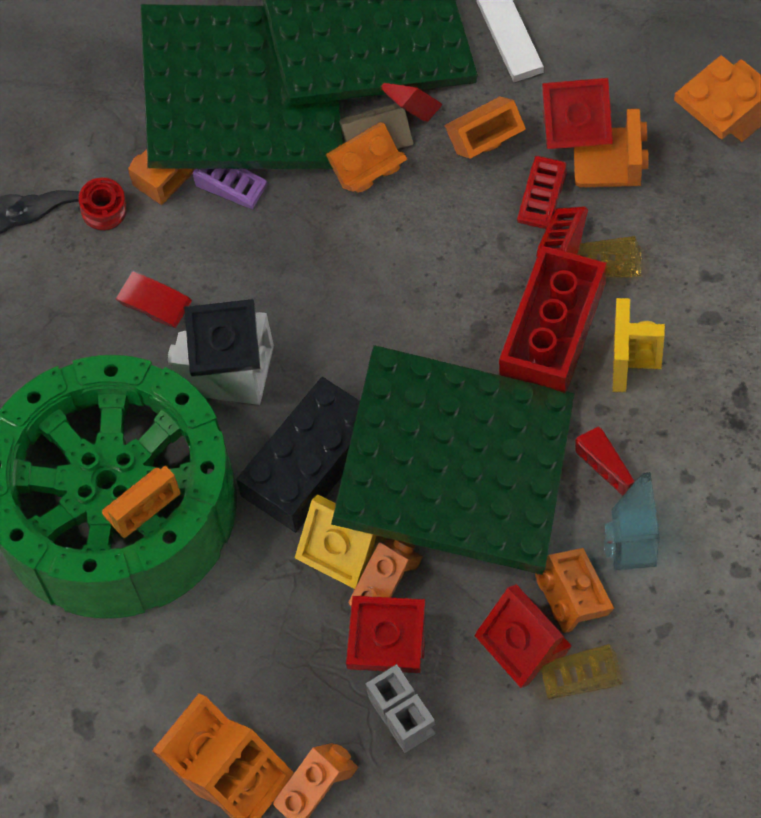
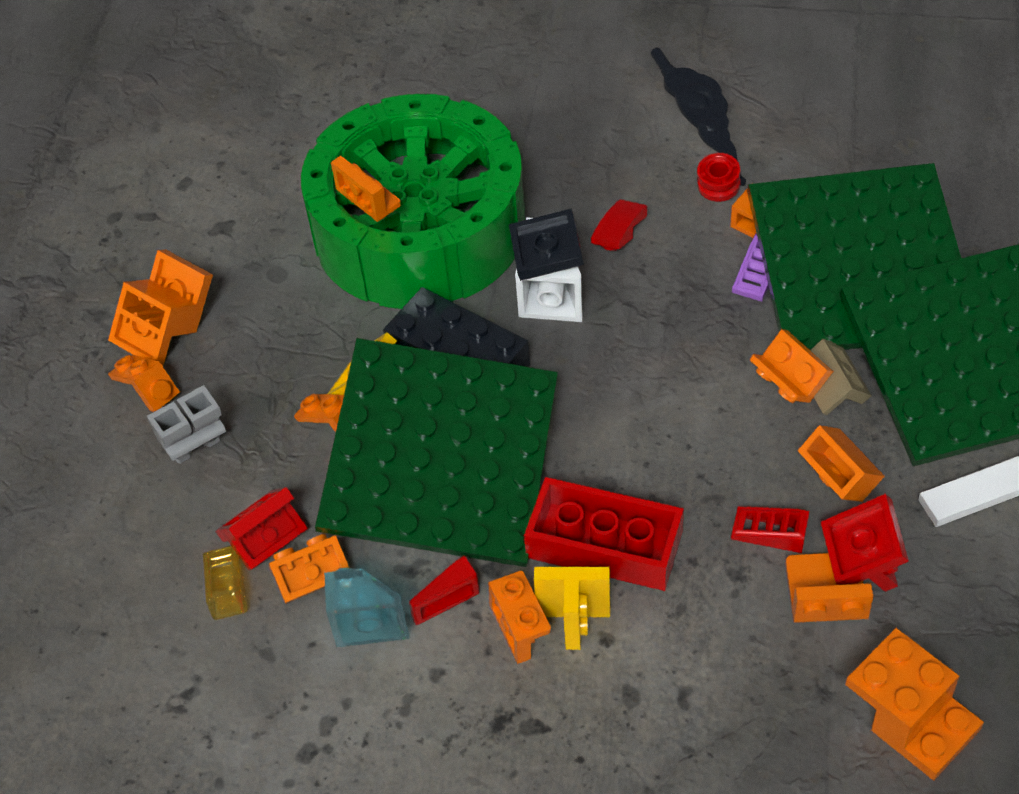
camera: 85 degrees right, 10 degrees down
(386, 634) = (260, 410): red bracket -> none
(413, 100) = (860, 393): red slope -> none
(572, 235) = (715, 545): red slope -> none
(619, 247) = (690, 609): clear yellow slope -> none
(639, 396) = (517, 613): none -> orange bracket

